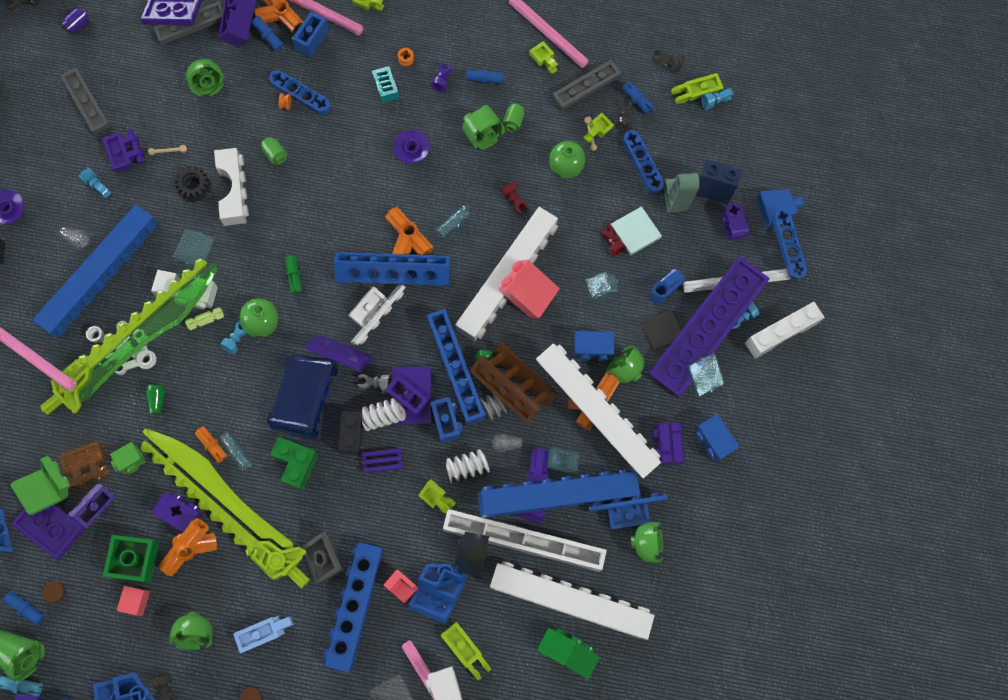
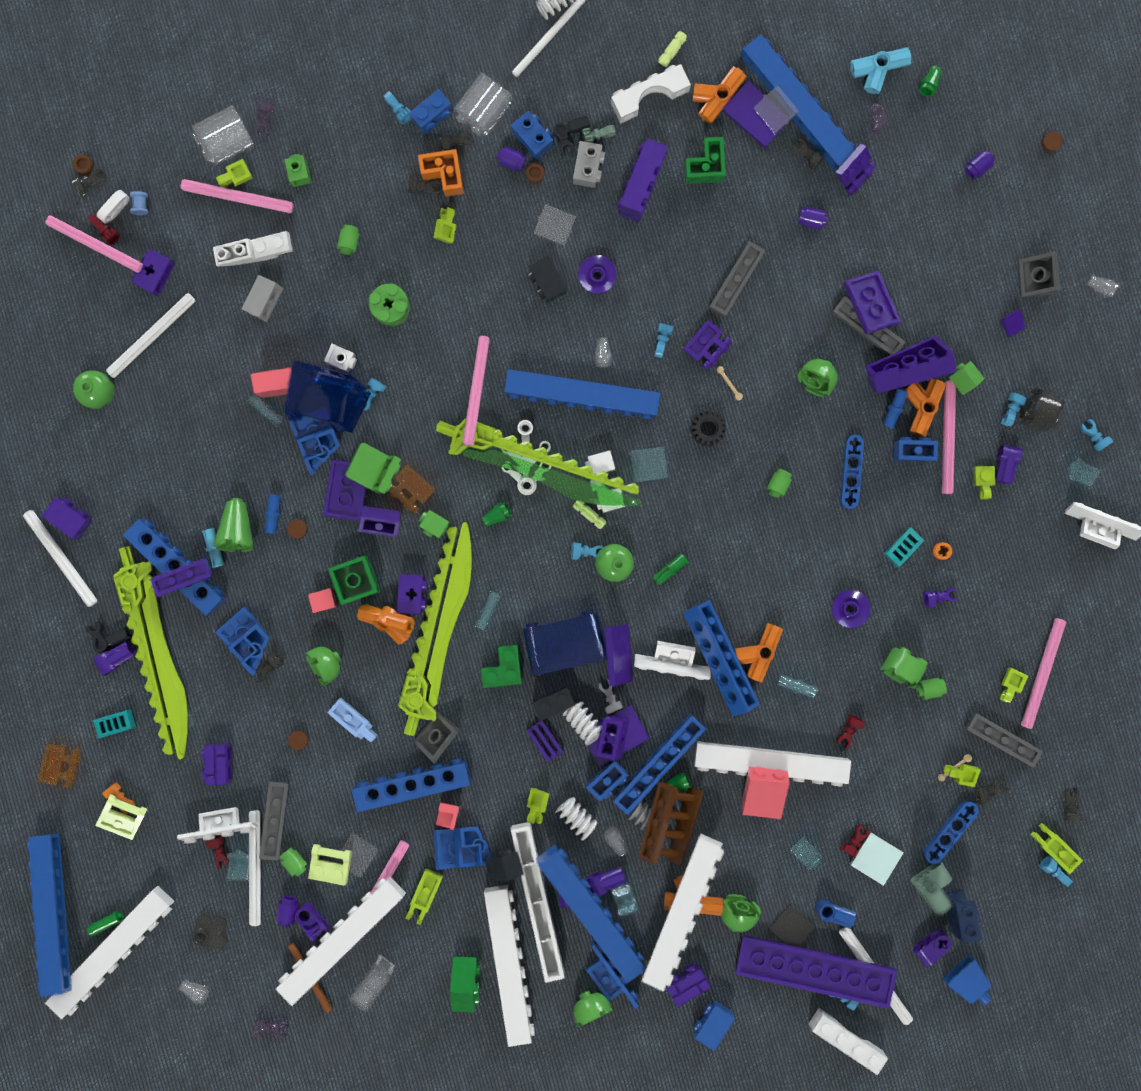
camera: 65 degrees right, 15 degrees up
(211, 444) = (482, 586): orange axle -> none
(232, 207) = (743, 450): white arch -> none
(285, 101) = (834, 464): orange bush -> none
(484, 76) = (961, 638): blue pin -> none
(567, 159) = (915, 759): bright green cylinder -> none
(593, 345) = (744, 877): blue brick -> none
(638, 97) = (1016, 796): blue pin -> none
(706, 374) = (768, 989): clear light blue piece -> none
(786, 244) = (931, 1007): blue beam -> none

